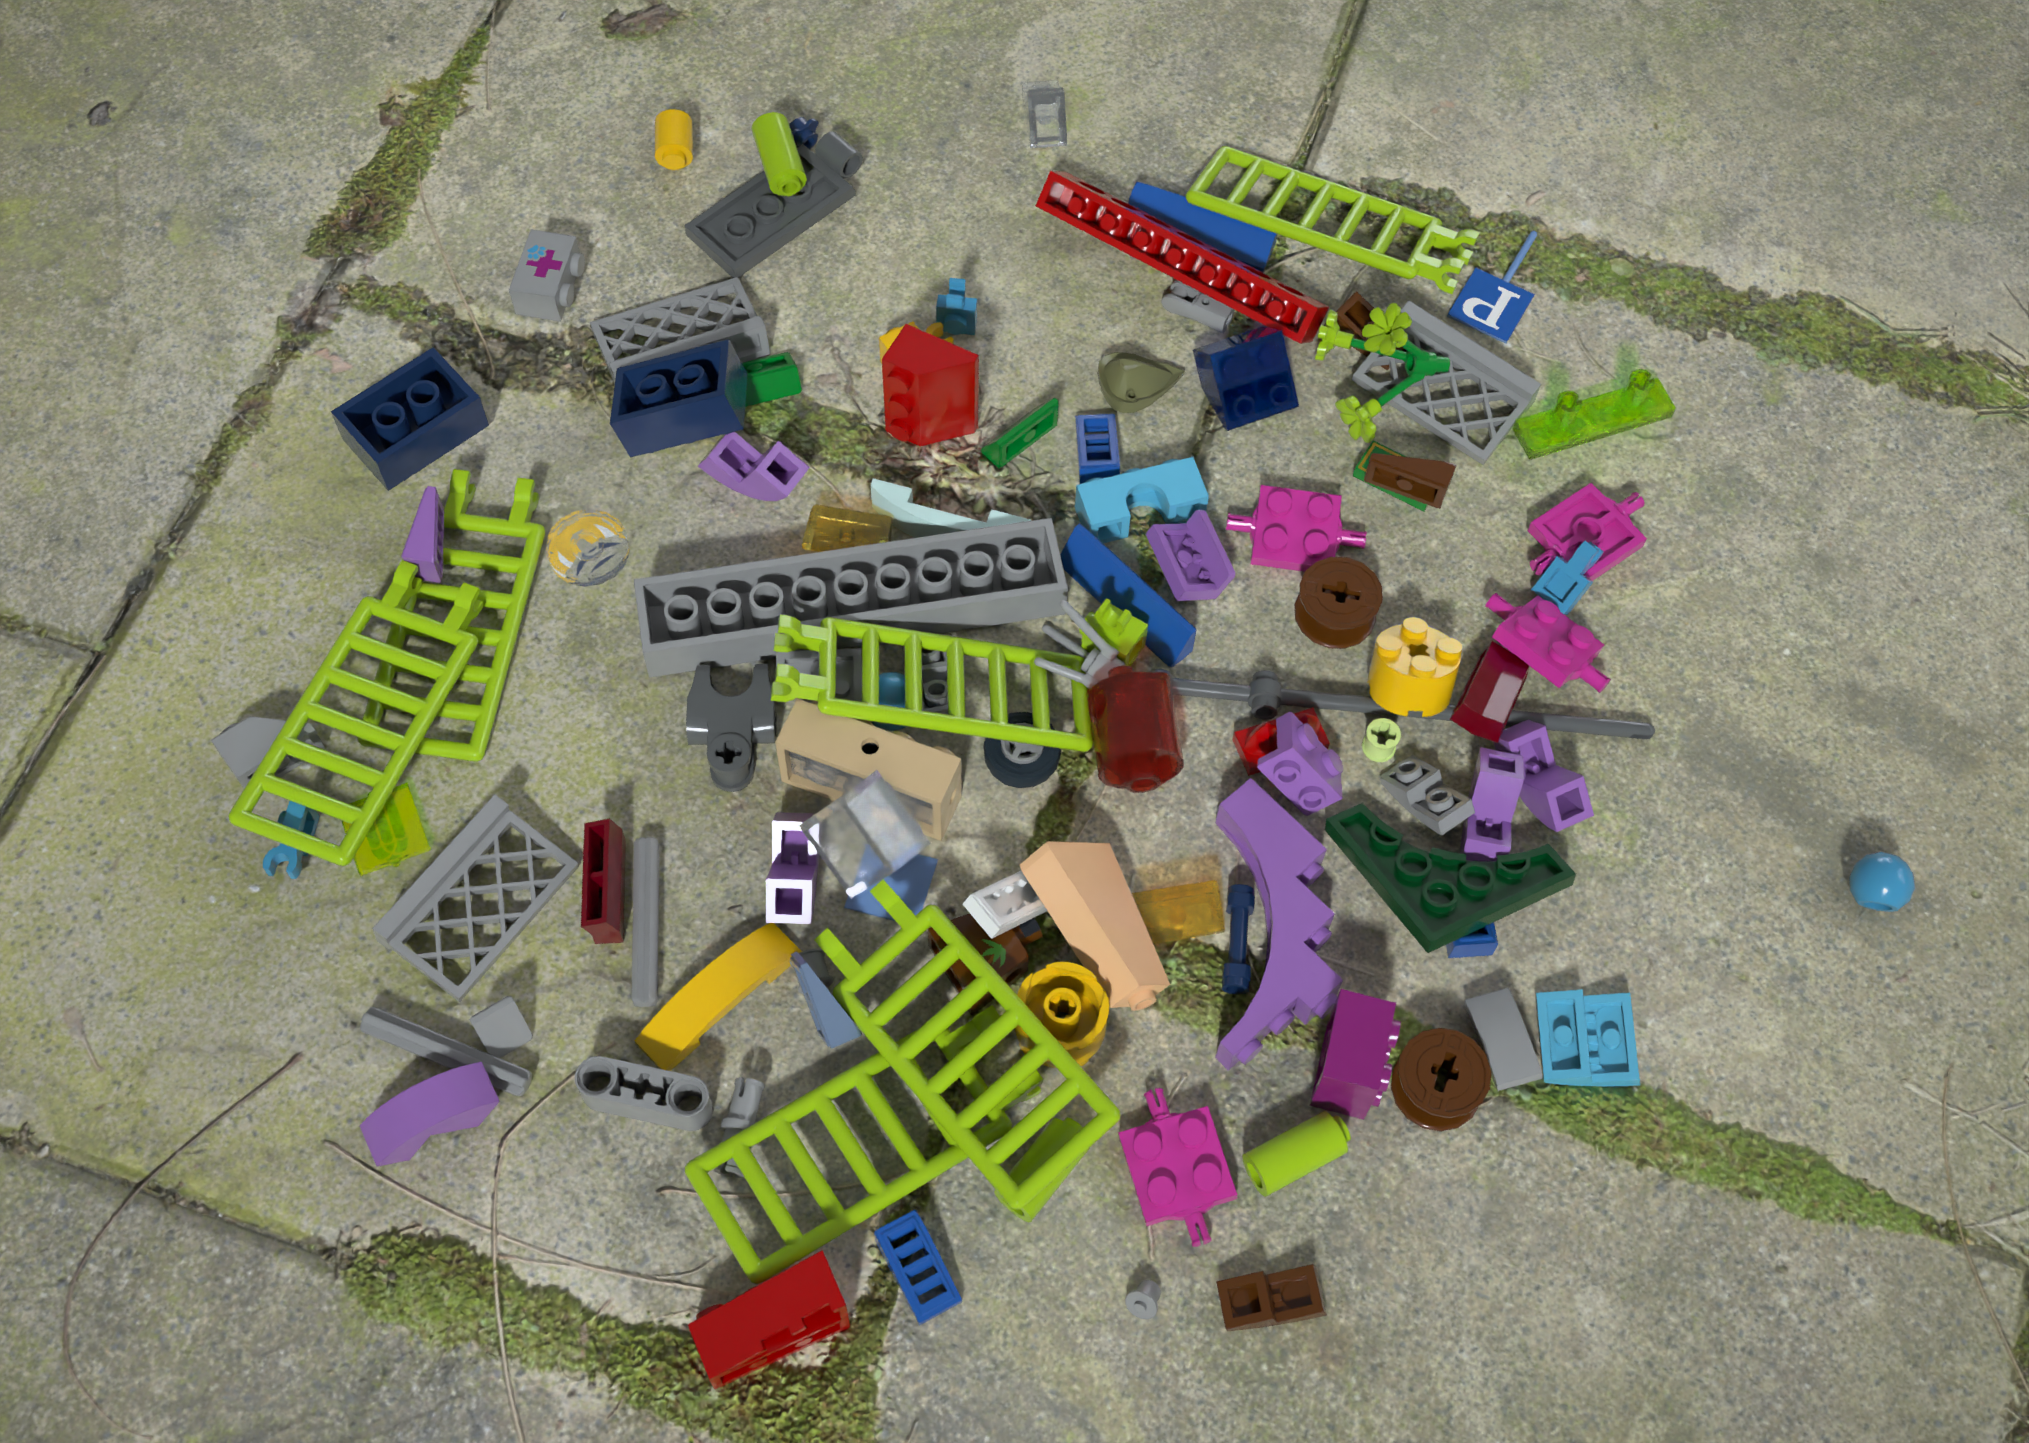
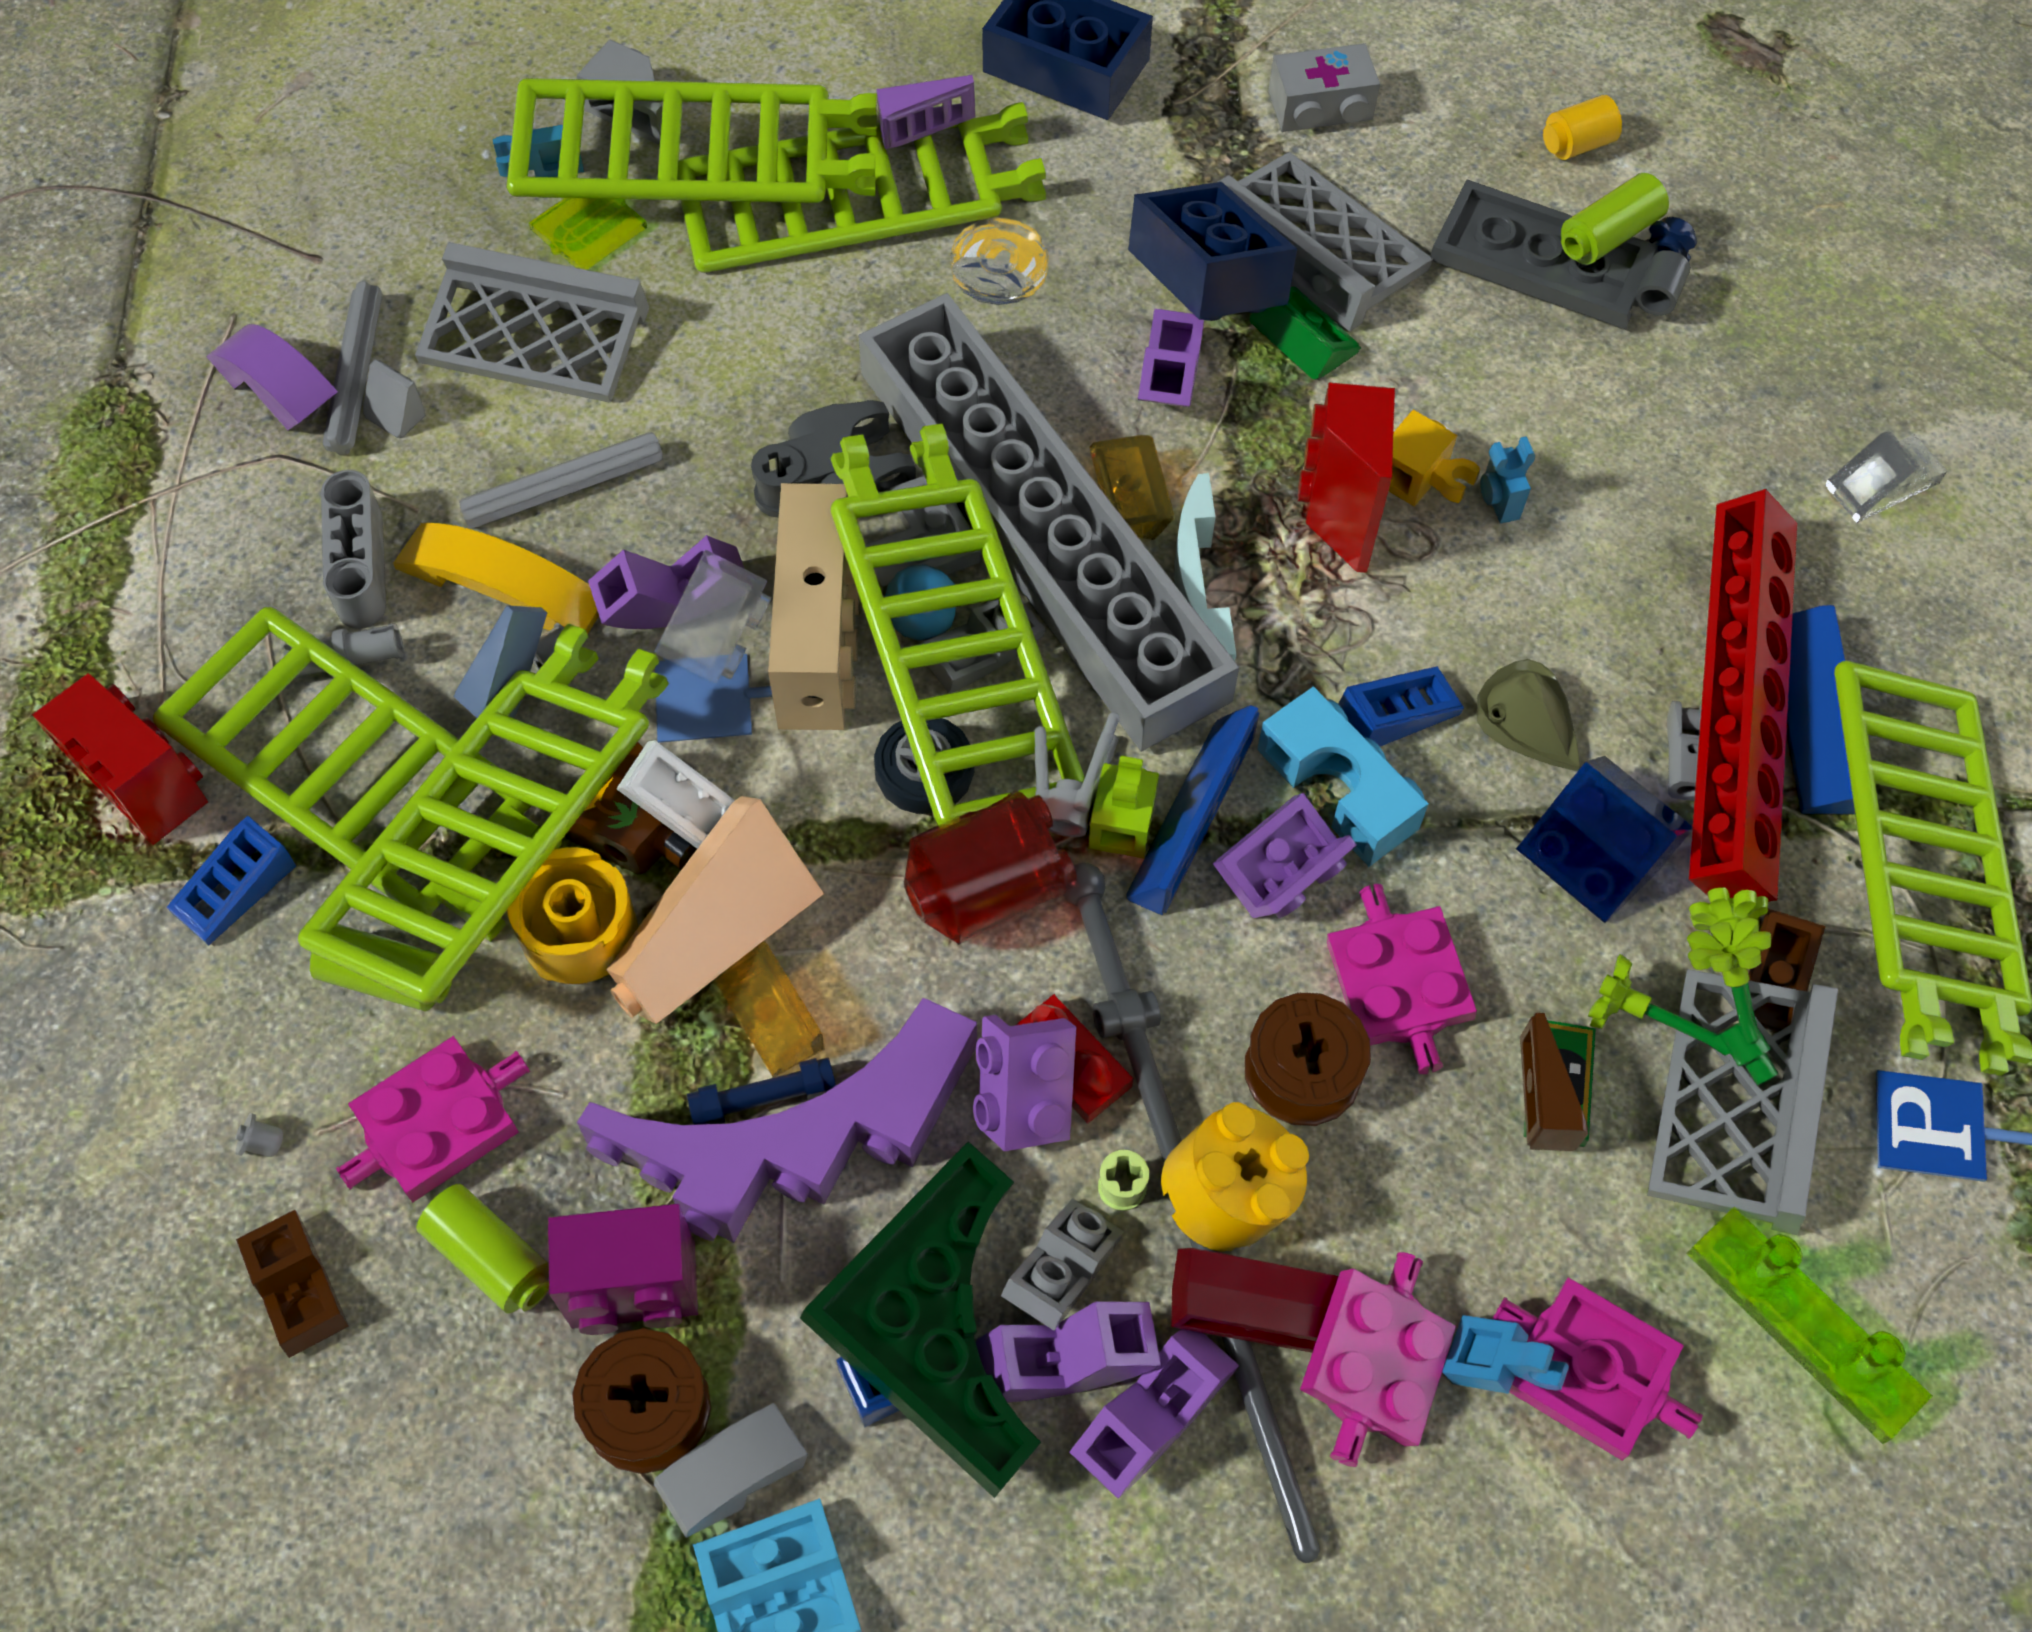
camera: 70 degrees right, 0 degrees up
(603, 881) = (586, 420): dark red piece -> none
(1022, 433) = (1375, 617): green slope -> none

